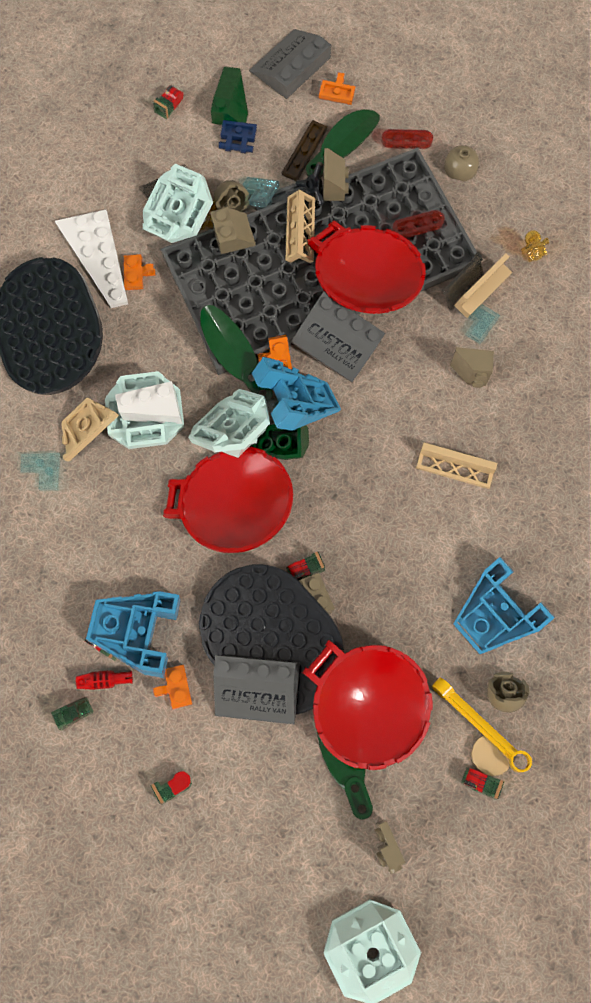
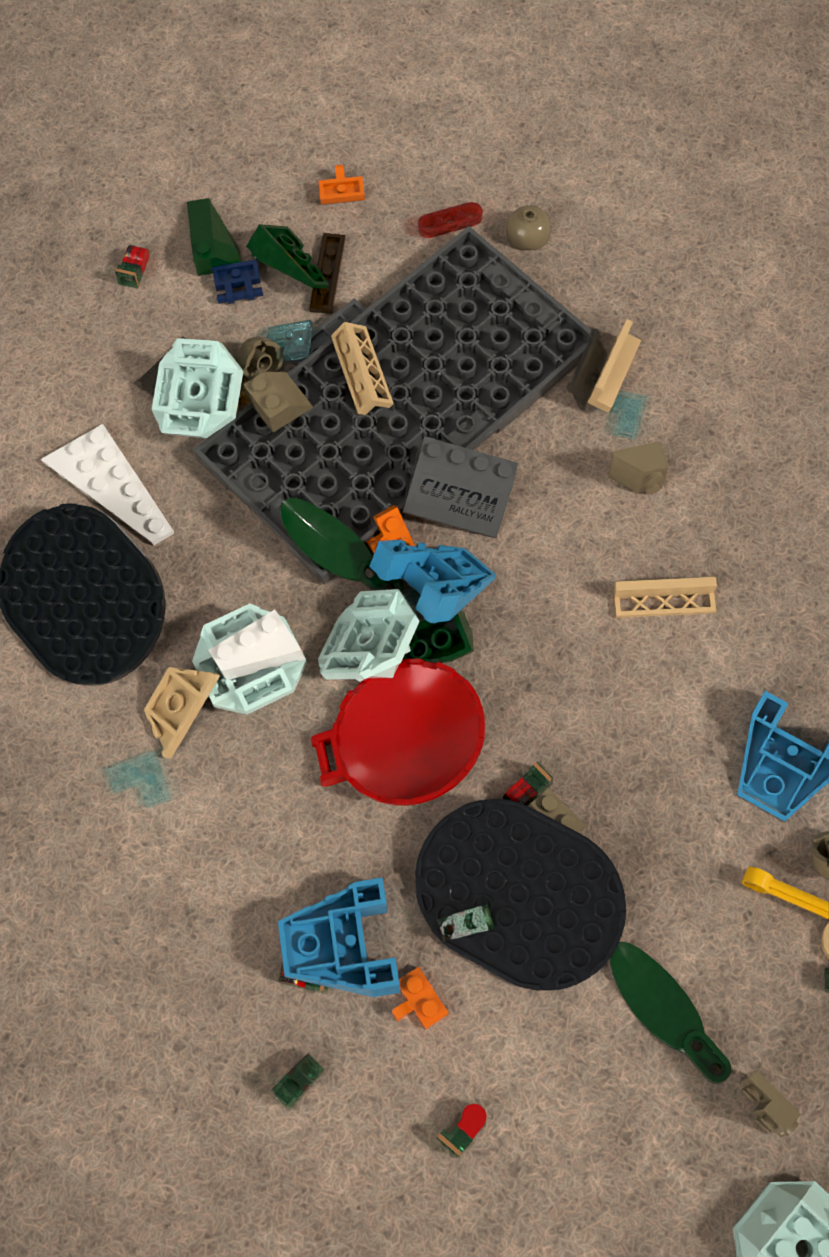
camera: 15 degrees left, 5 degrees down
(103, 679) = (321, 1023): red hinge -> none
(135, 271) = (169, 490): orange plate -> none
(226, 646) = (466, 923): none -> clear green leg
(256, 688) = (525, 964): dark grey slope -> none
(278, 125) = (283, 251): none -> dark green wedge
(292, 61) = (271, 170): dark grey slope -> none
(314, 183) = (358, 309): black piece -> none
(334, 177) = (381, 293): dark tan slope -> none
(346, 135) = (372, 245): dark green plant -> none
(367, 268) = (466, 390): red dish -> none
(370, 705) = (677, 932): red dish -> none
(424, 220) = (511, 311): clear red plate -> none
(534, 248) = (658, 302): clear yellow hips -> none

